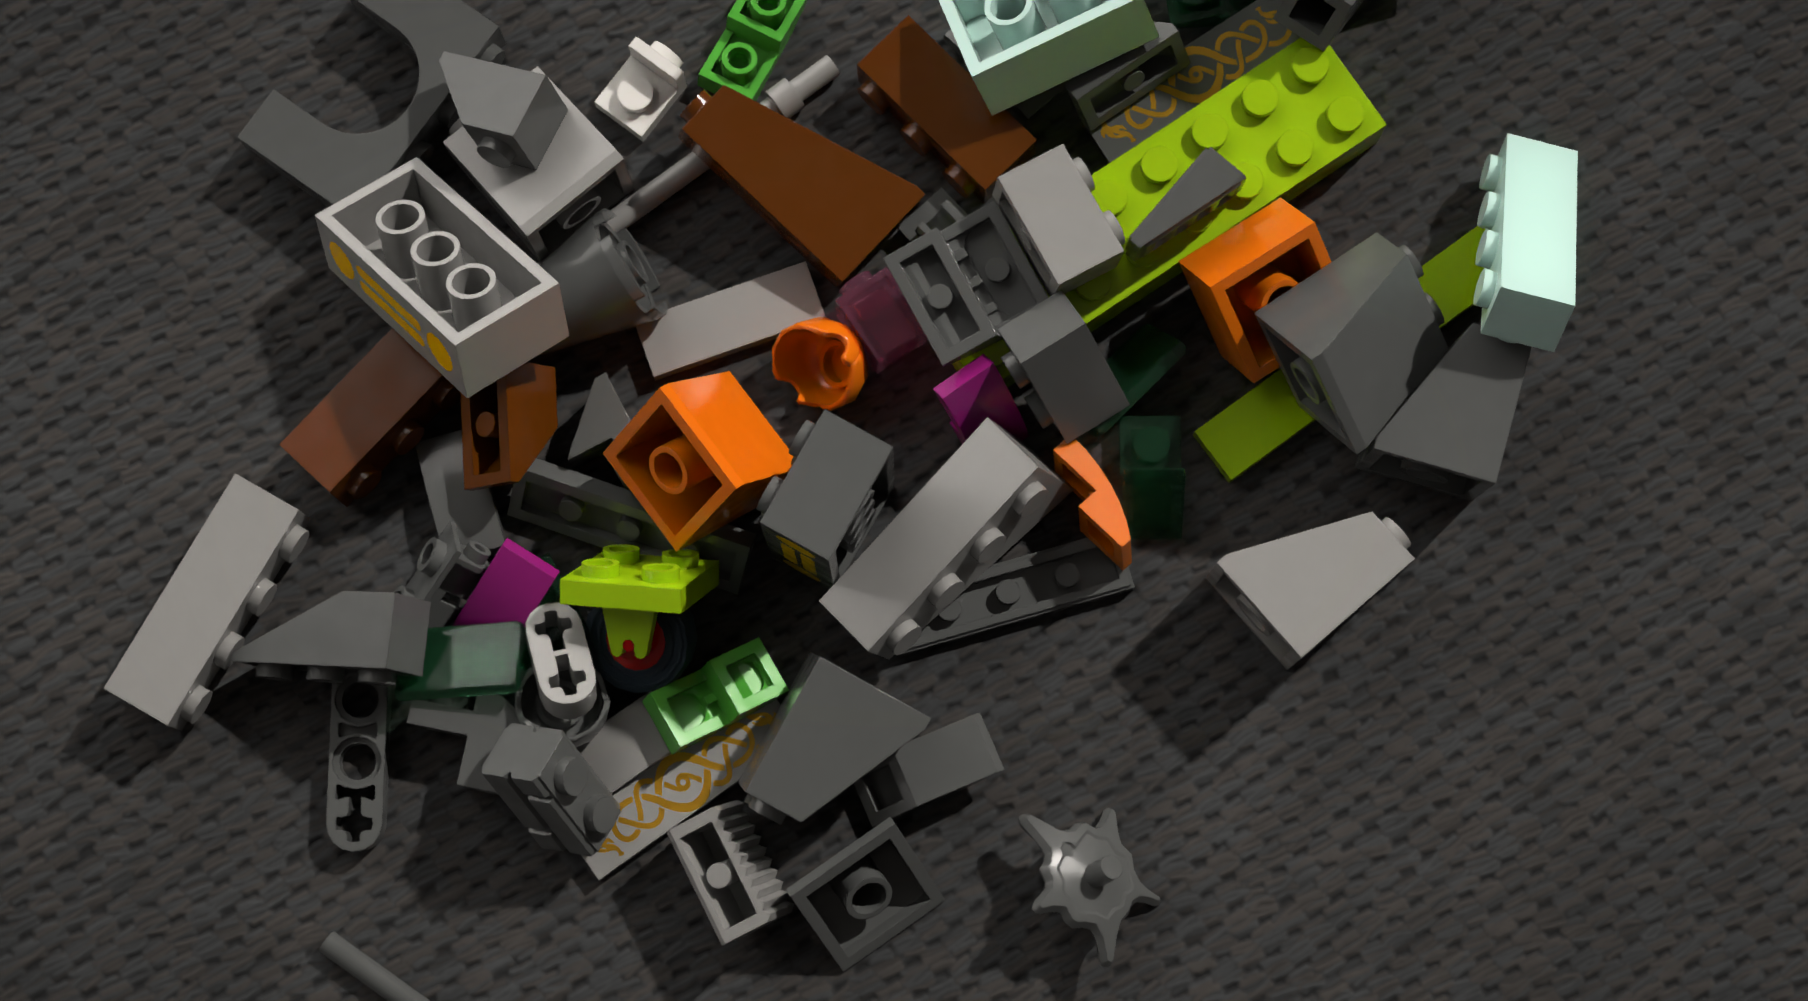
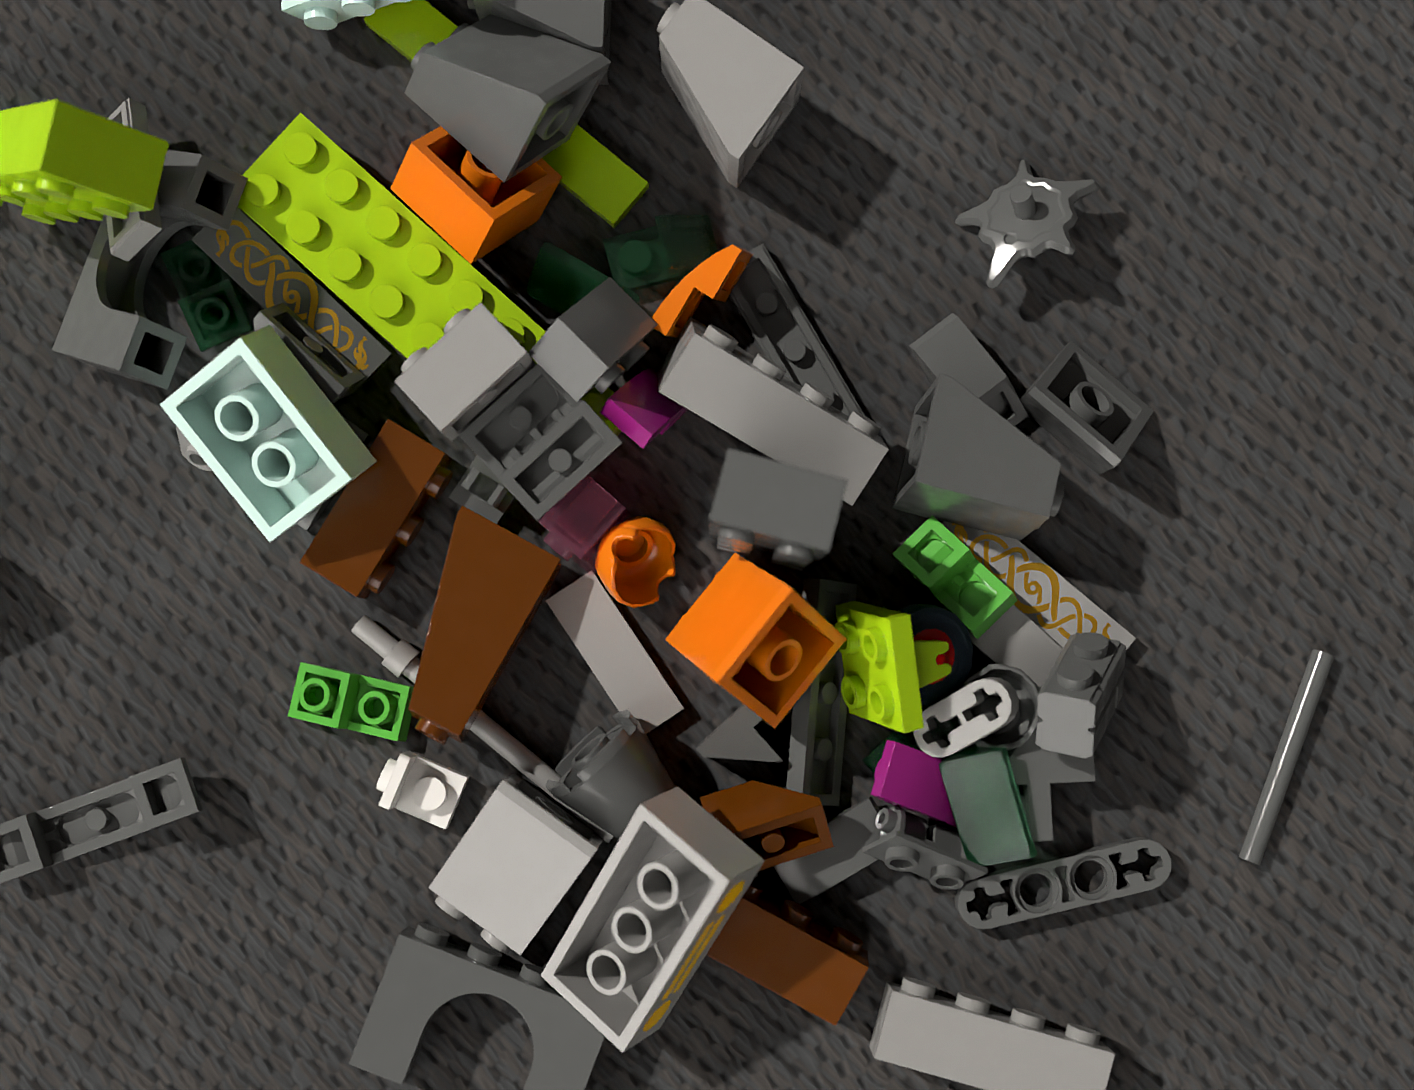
camera: 105 degrees left, 5 degrees up
(349, 633) = (992, 905): dark grey slope -> none
(504, 109) = (482, 905): dark grey slope -> none
(730, 871) = (1105, 523): light grey brick -> none
(1196, 194) = (407, 256): dark grey slope -> none

